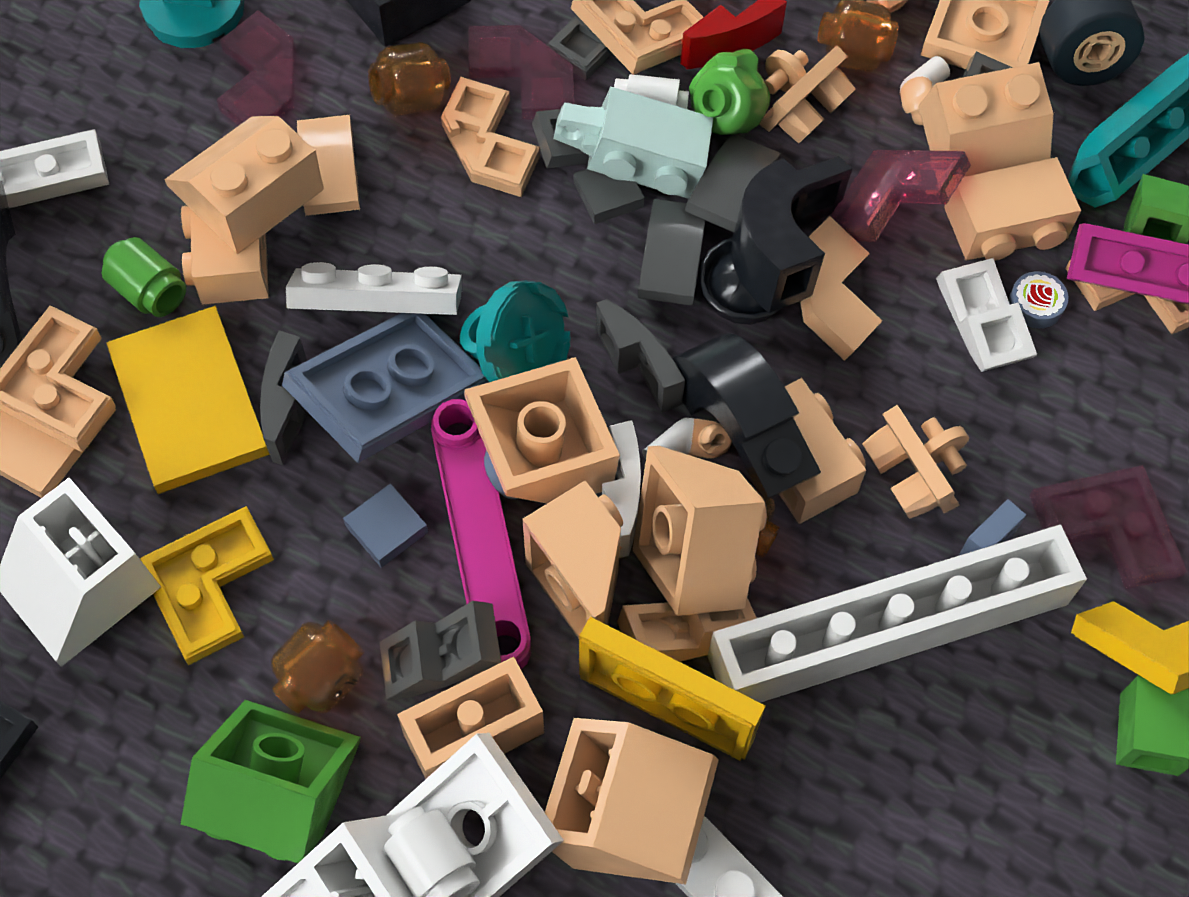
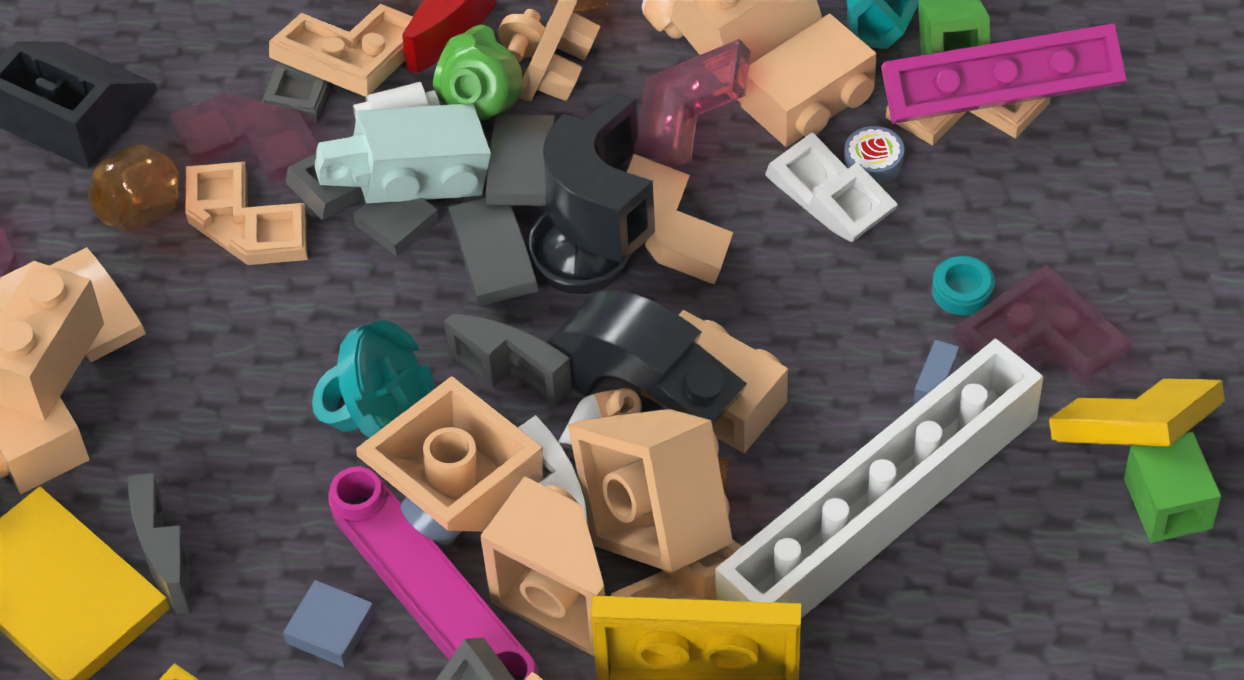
camera: 20 degrees left, 10 degrees down
(374, 289) = (203, 402): white plate -> none
(383, 383) = (261, 484): sand blue tile -> none
(928, 485) = (853, 361): light nougat hips -> none
(1060, 452) = (963, 285): none -> teal tile

